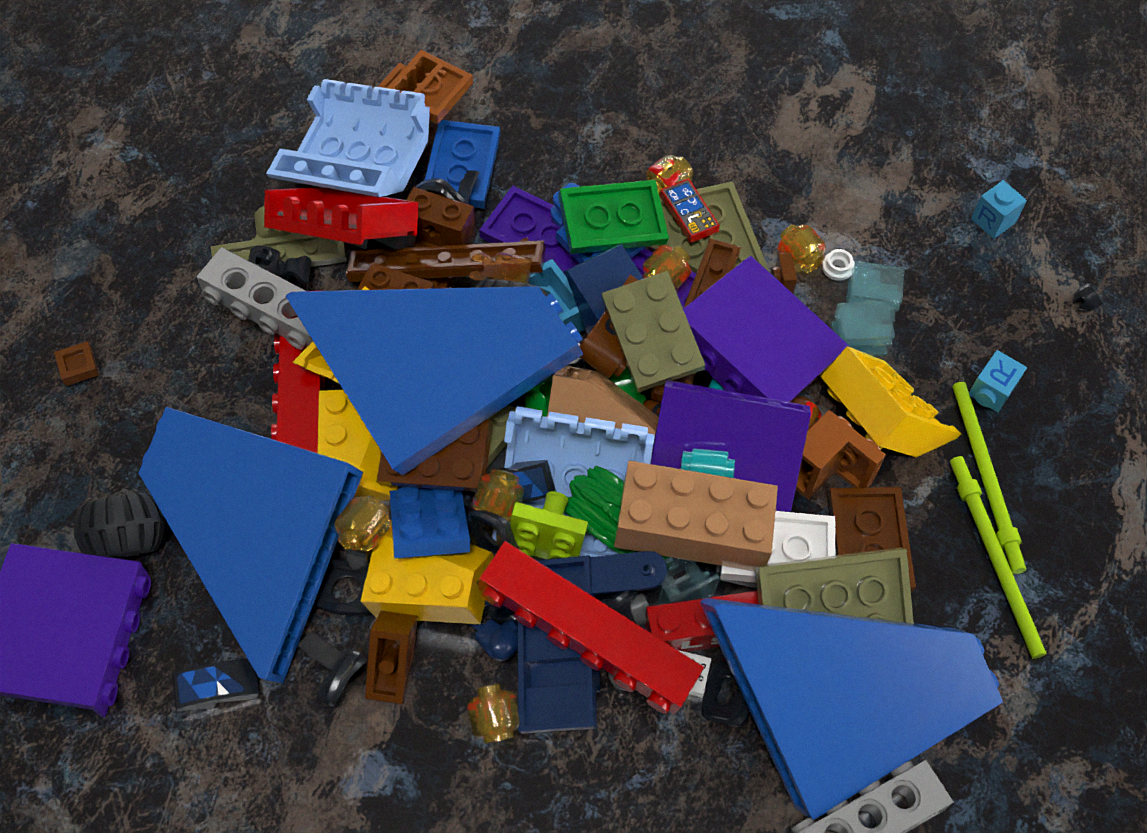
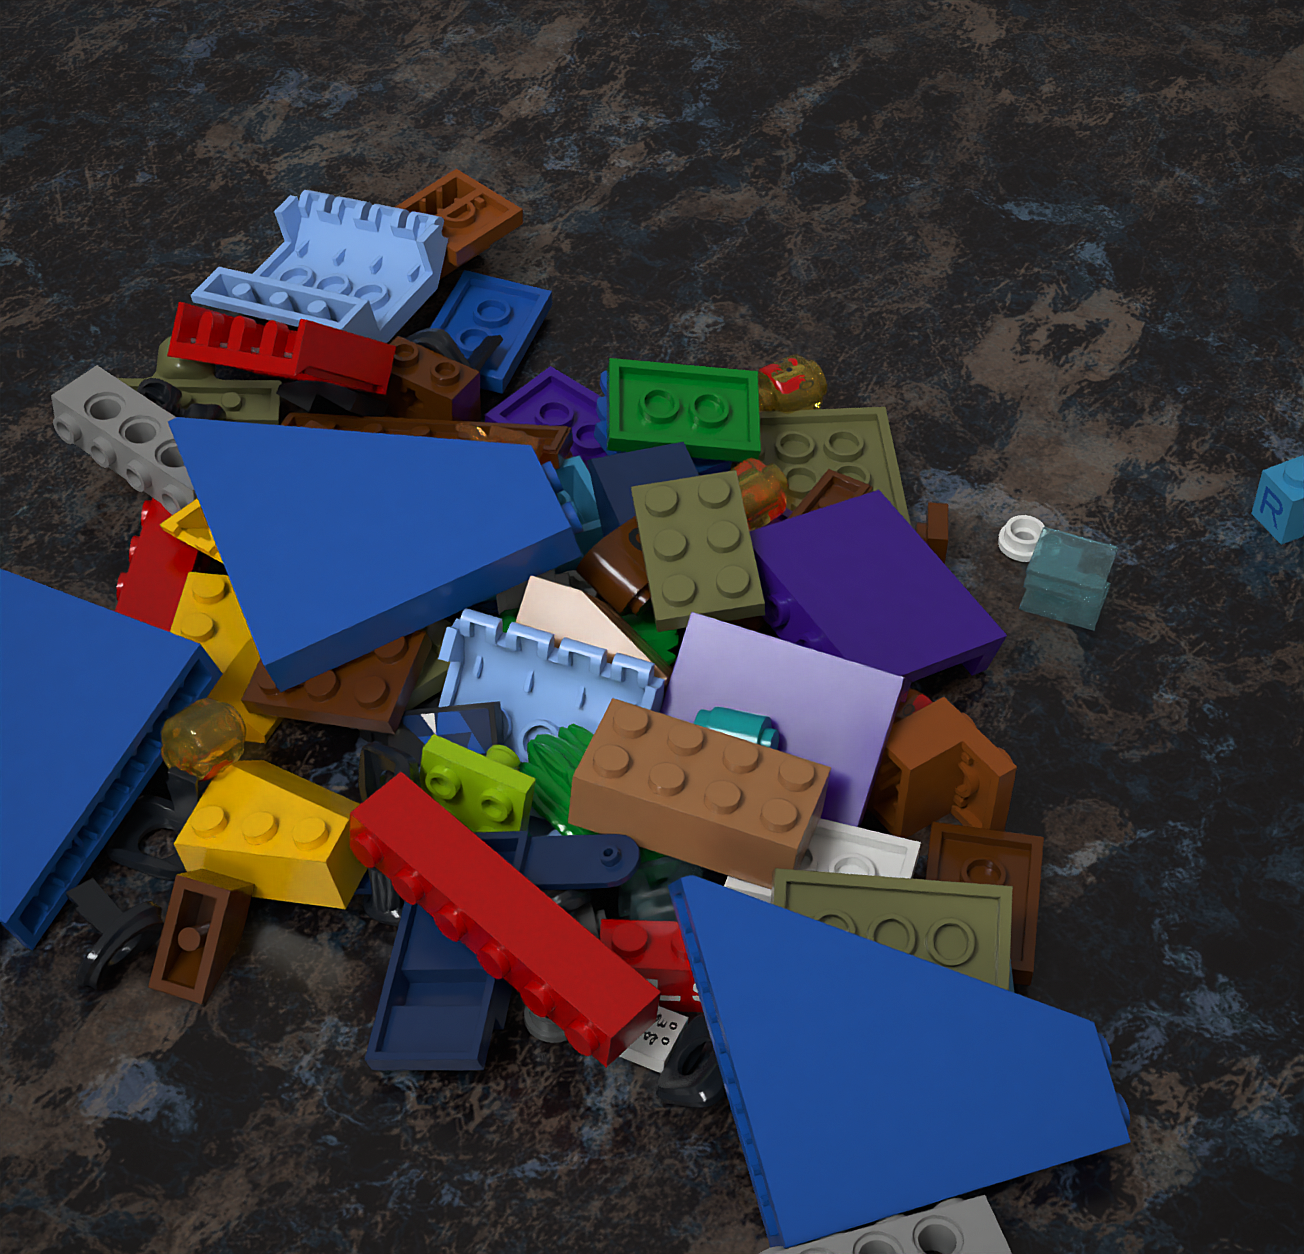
camera: 10 degrees right, 15 degrees down
(428, 522) = (302, 758): blue plate -> none
(493, 714) = (333, 1032): clear yellow head -> none
(497, 640) = (364, 938): dark blue piece -> none
(498, 493) = (411, 726): clear yellow head -> none
(689, 210) = (807, 431): tile -> none
(805, 246) = (974, 505): clear yellow head -> none
(865, 326) = (1038, 623): clear light blue piece -> none
(884, 404) = (1049, 727): yellow wedge -> none
(970, 492) = (1156, 869): lime bar -> none
(997, 381) = (1234, 723): dark azure brick -> none
(1007, 534) = (1201, 930): lime bar -> none

